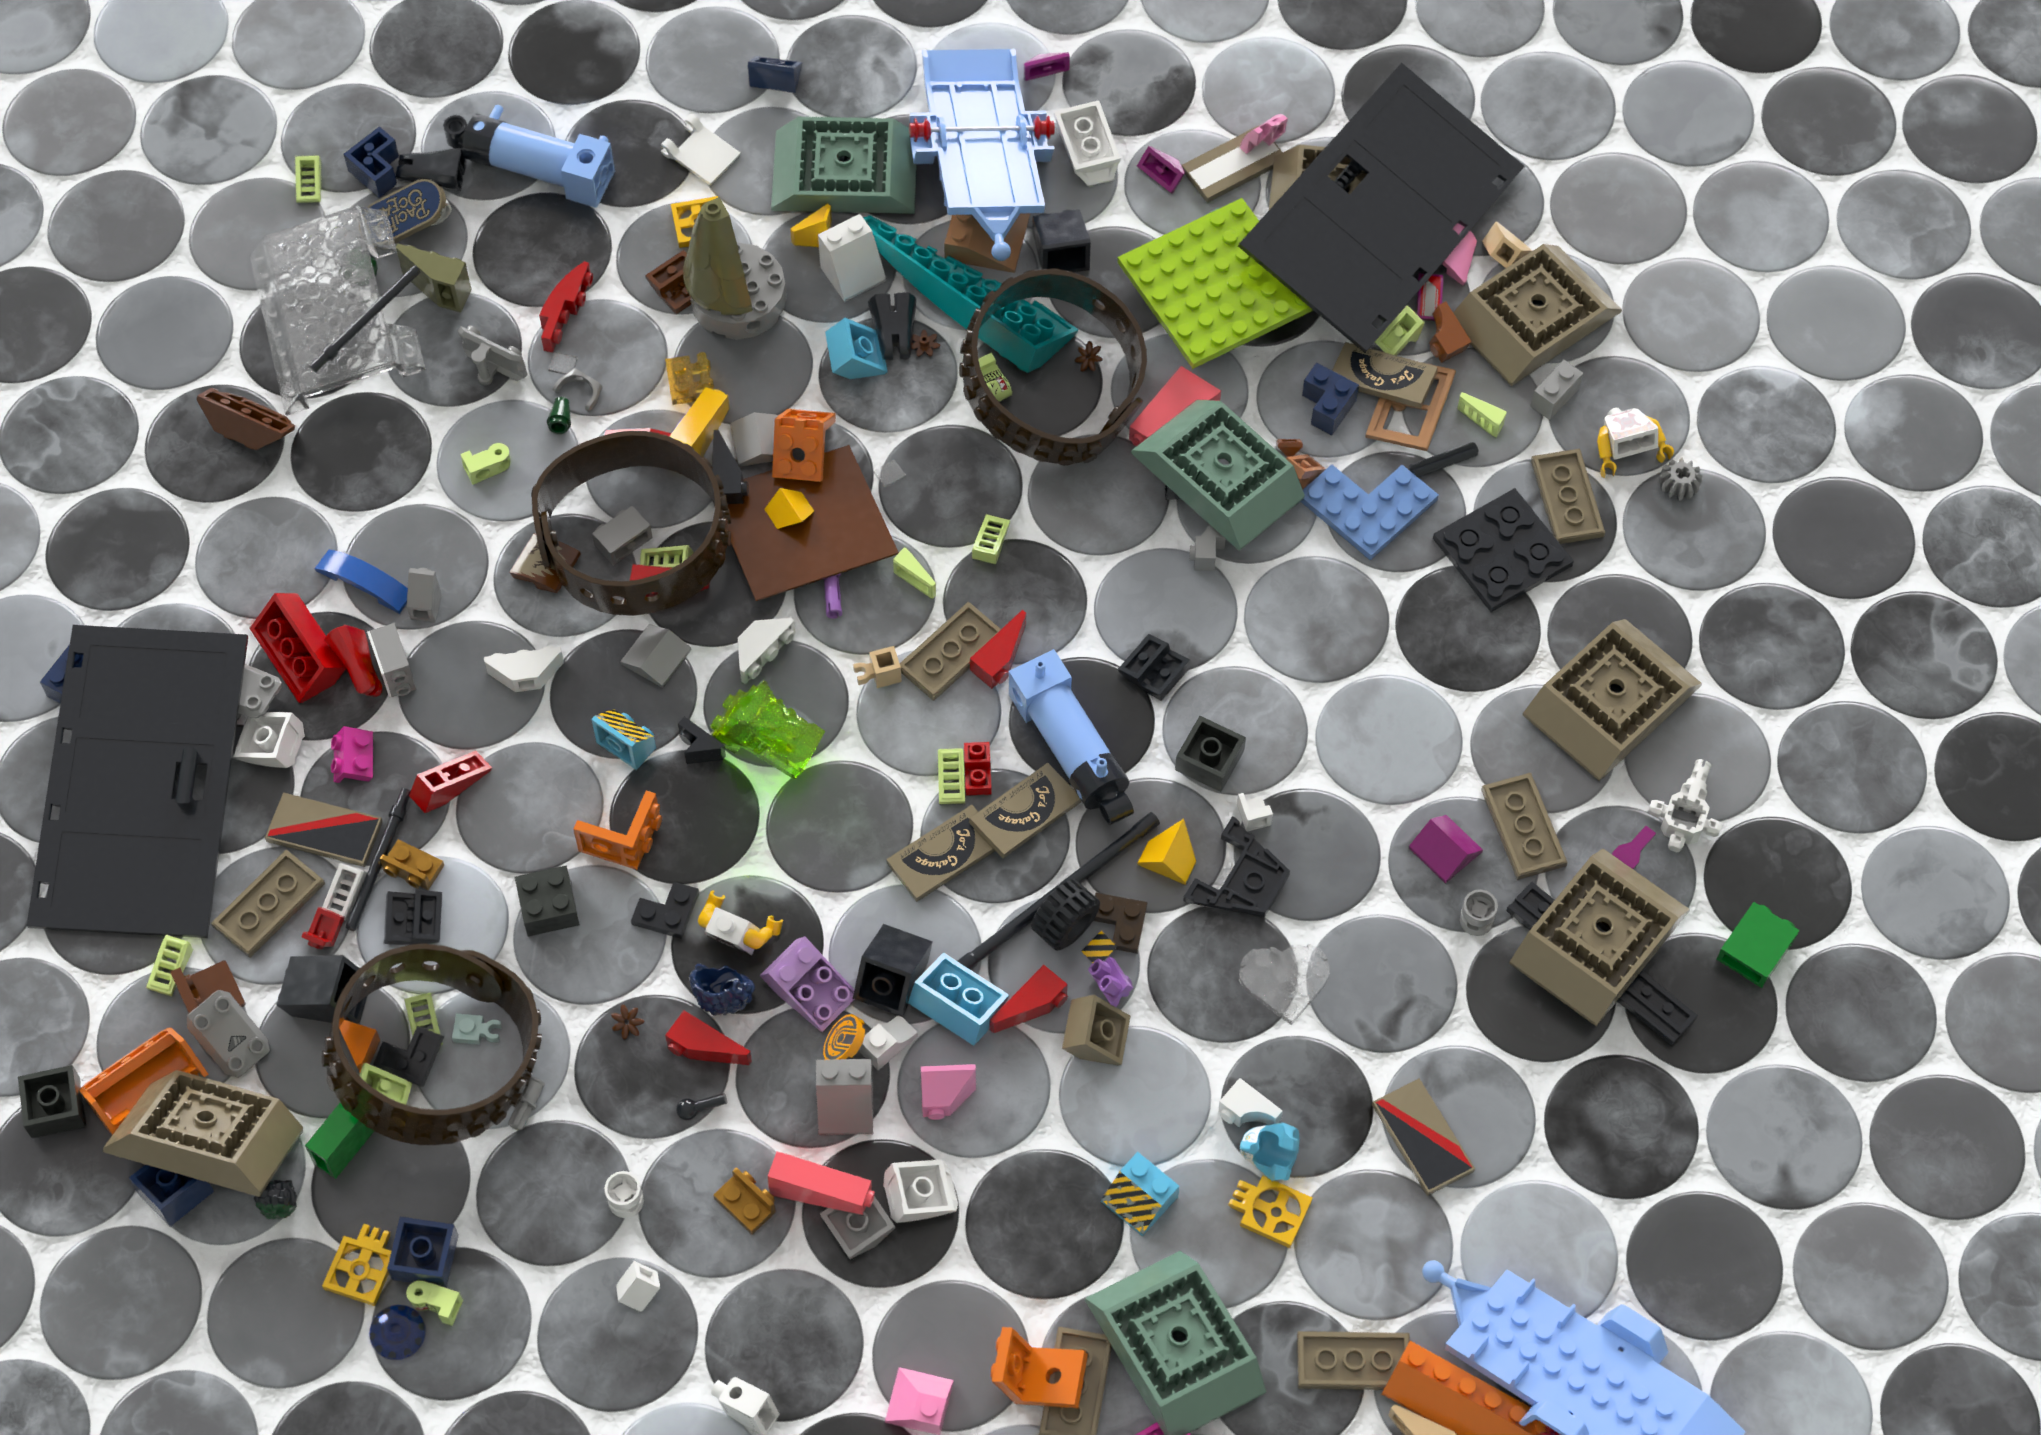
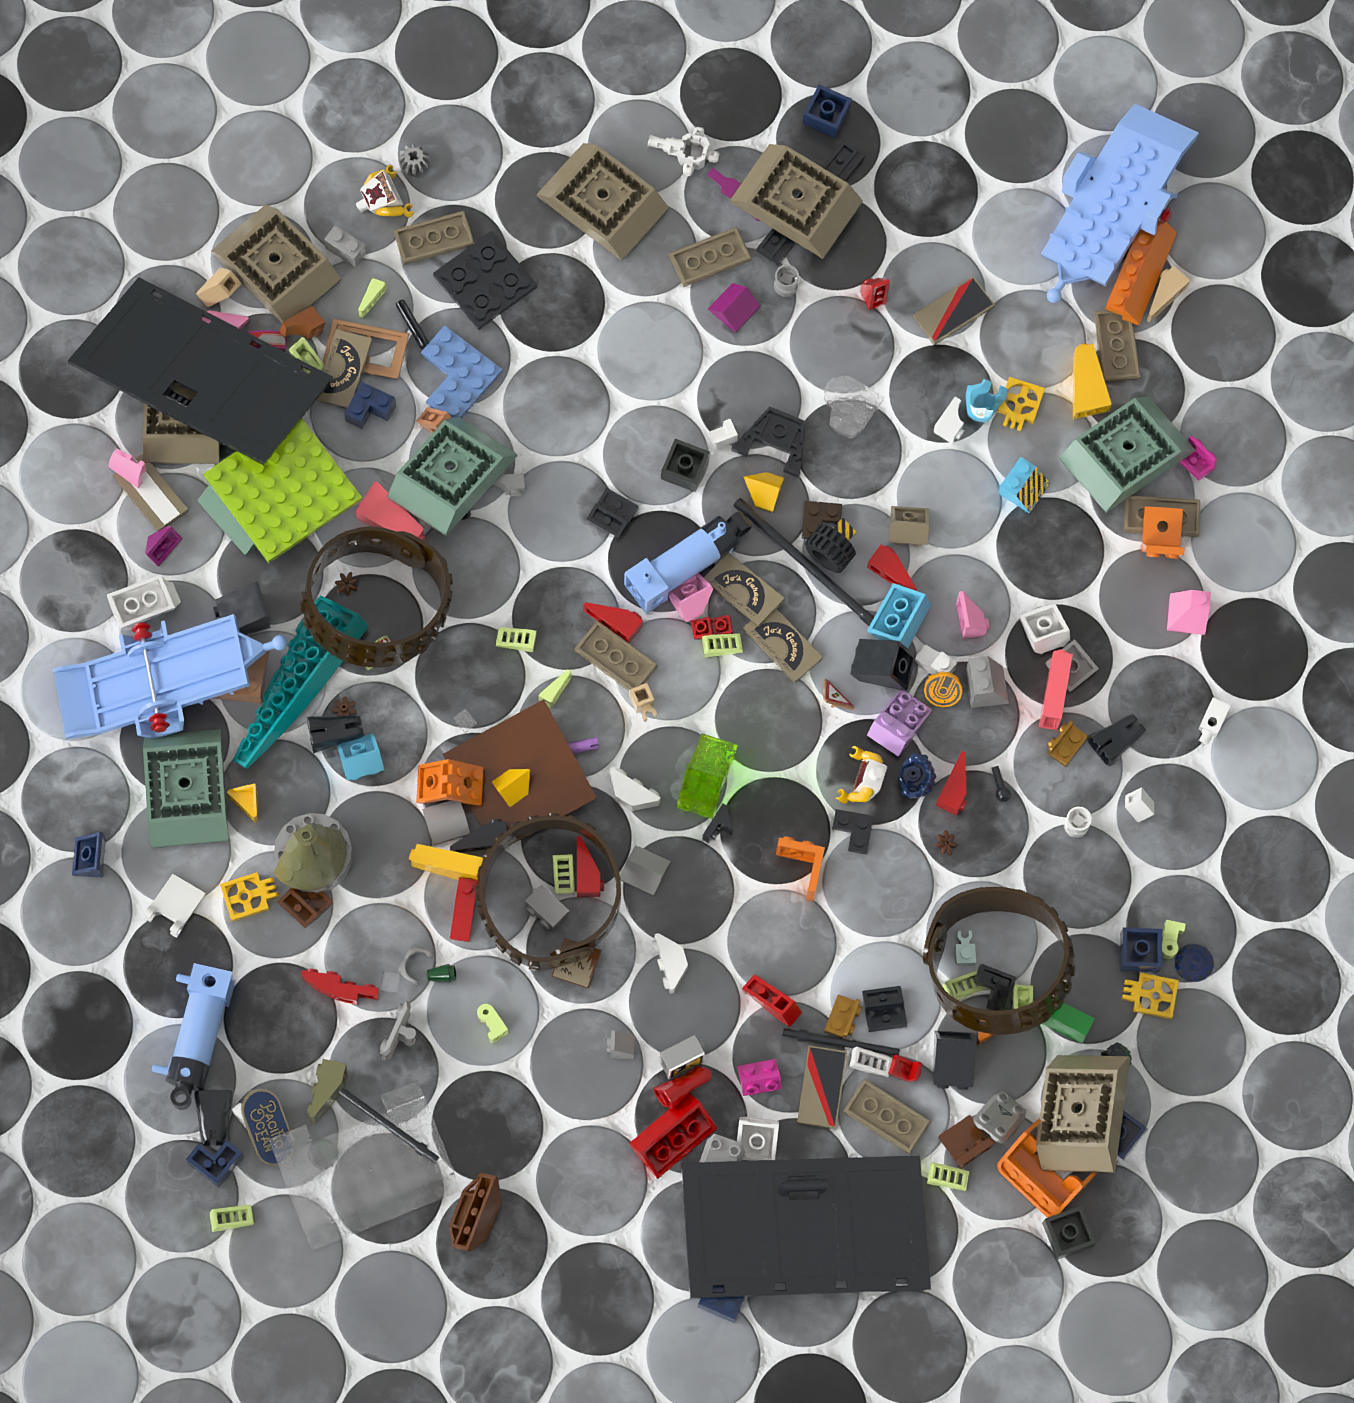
camera: 100 degrees left, 10 degrees up
(364, 577) = (605, 1099): blue slope -> none
(547, 901) = (861, 912): pearl dark grey brick -> none
(623, 737) = (722, 877): medium azure slope -> none
(681, 374) = (396, 887): clear yellow plate -> none
(740, 1267) = (1115, 739): none -> black piece
(850, 258) = (278, 767): white slope -> none
(856, 904) = (834, 696): none -> piece
(1019, 739) = (691, 597): none -> bright pink slope
(1046, 65) = (63, 646): magenta slope -> none
(1111, 979) = (872, 515): medium lavender hips -> none
(1289, 446) = (411, 432): dark orange slope -> none
(1293, 1306) = (1089, 387): none -> yellow slope
(1453, 1022) = (875, 292): none -> red slope
(1742, 996) = (827, 111): none -> dark blue brick
(1758, 944) = (783, 103): green brick -> none

